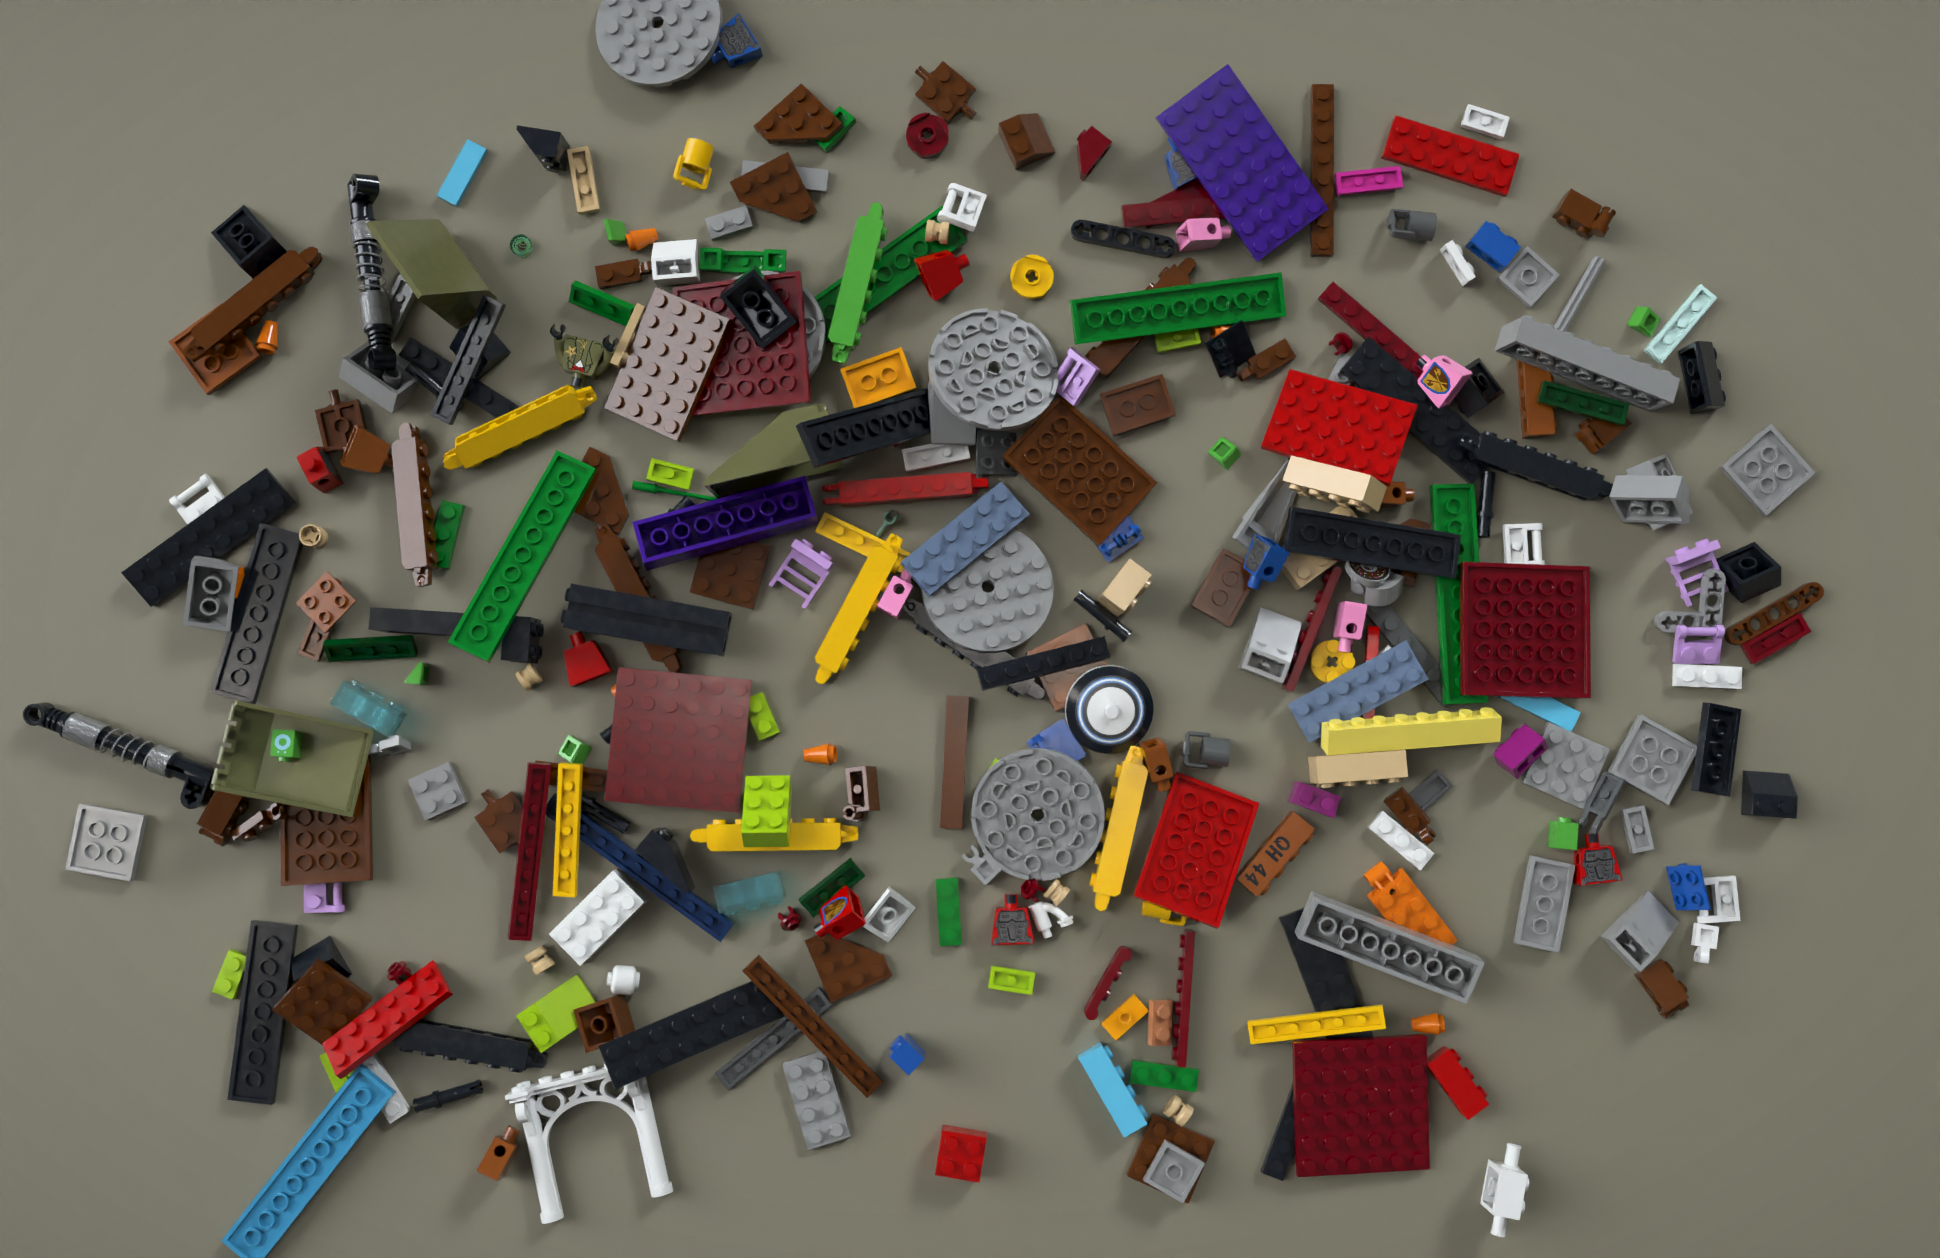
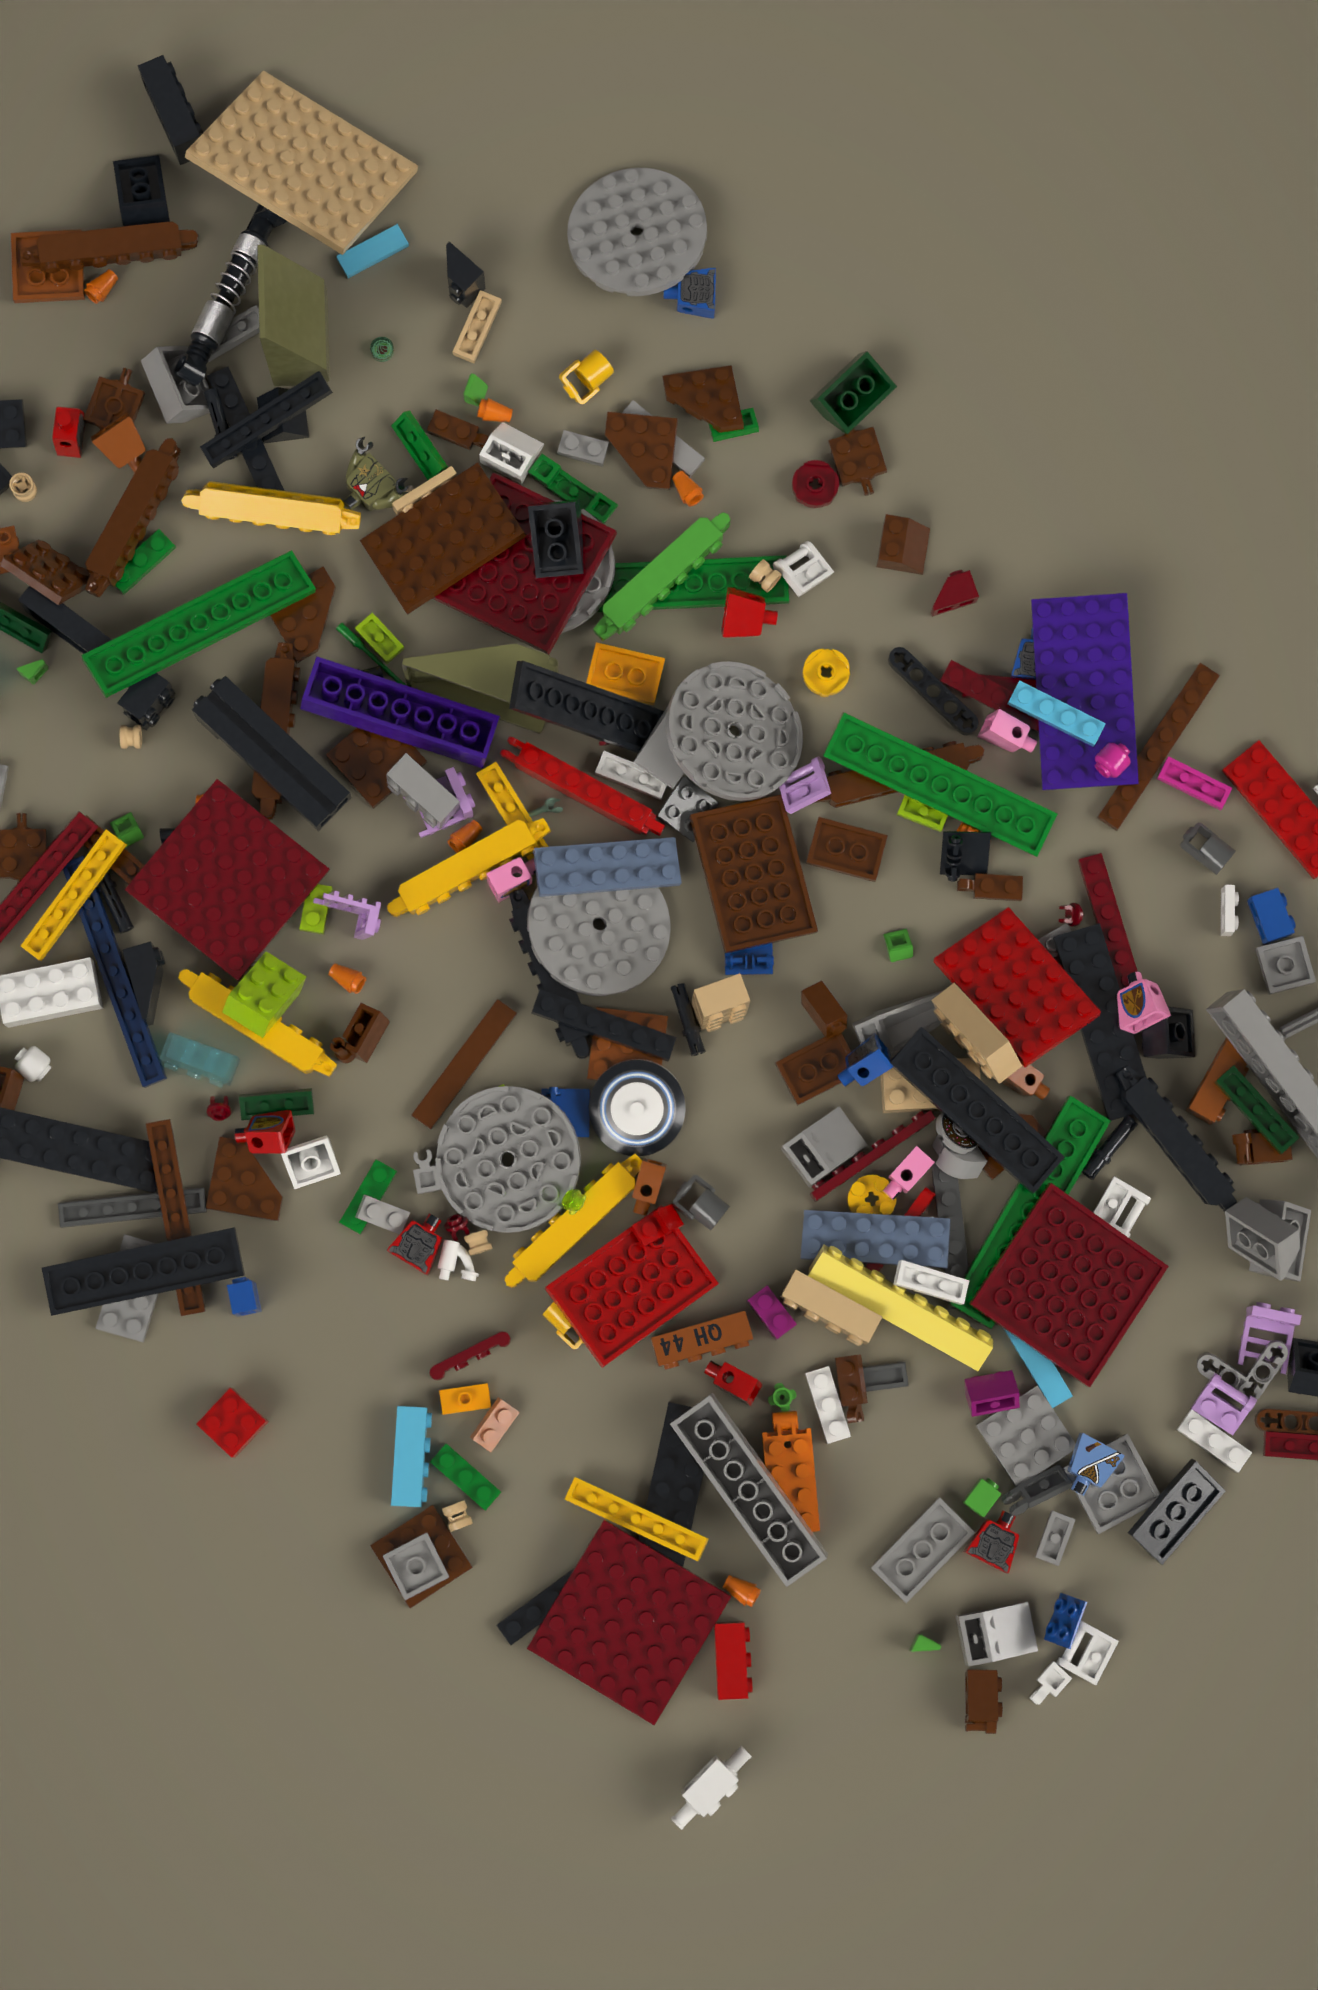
camera: 25 degrees right, 5 degrees down
(229, 160) = (170, 105): none -> black brick
(359, 137) = (302, 162): none -> tan plate
(376, 591) = (47, 571): none -> reddish brown plate
(585, 661) = (190, 755): red torso -> none
(784, 574) = (422, 792): none -> light grey brick
(806, 697) = (367, 914): none -> lavender plate
(816, 1085) = (143, 1271): none -> black plate
(832, 203) = (688, 490): none -> orange cone
(839, 586) = (464, 836): none -> orange cone
(910, 43) = (853, 392): none -> dark green slope
(969, 919) = (382, 1214): none -> light grey plate
(1011, 980) = (384, 1296): lime plate -> none
(1110, 814) = (573, 1201): none -> clear neon green plate
(1182, 1008) = (523, 1423): dark red plate -> none
(1184, 790) = (657, 1225): none -> red slope
(1203, 540) = (824, 1009): none -> reddish brown brick
(1234, 194) = (1056, 713): none -> medium azure brick
(1300, 202) = (1112, 760): none -> dark pink head
(1331, 871) = (743, 1385): none -> red torso
(1367, 853) = (775, 1399): none -> bright green plate
(1423, 698) = (931, 1282): none -> white plate
(1592, 974) = (923, 1643): none -> bright green slope
(1632, 755) = (1092, 1463): none -> medium blue torso
(1768, 795) = (1199, 1587): black slope -> none

